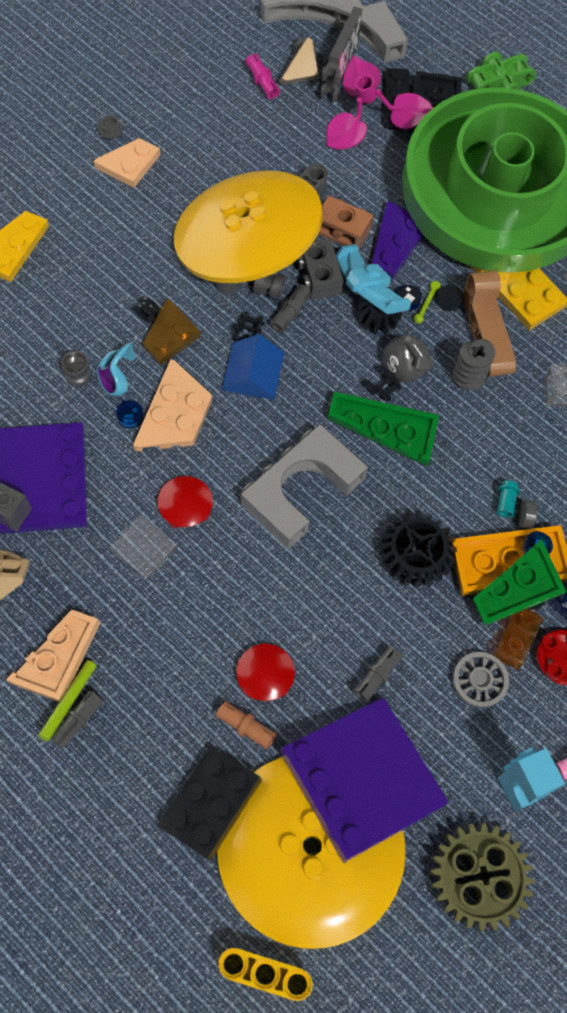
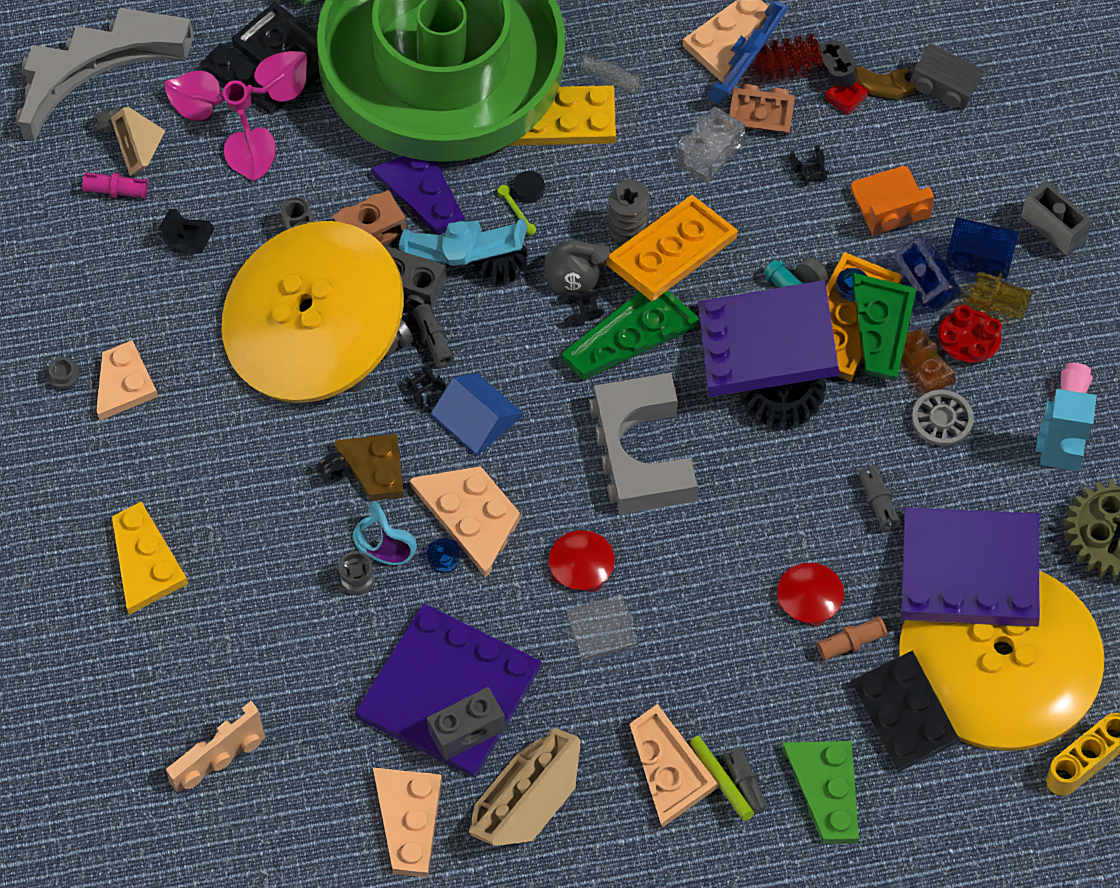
camera: 50 degrees left, 5 degrees down
(111, 783) = (828, 787): none -> bright green wing
(256, 128) = (184, 234): none -> black bracket
(342, 54) = (161, 92): dark grey tile -> none
(412, 293) = (498, 218): tile -> none
(444, 515) = (767, 338): none -> dark purple plate
(470, 409) = (671, 247): none -> light orange plate
(486, 319) = (580, 169): medium nougat beam -> none

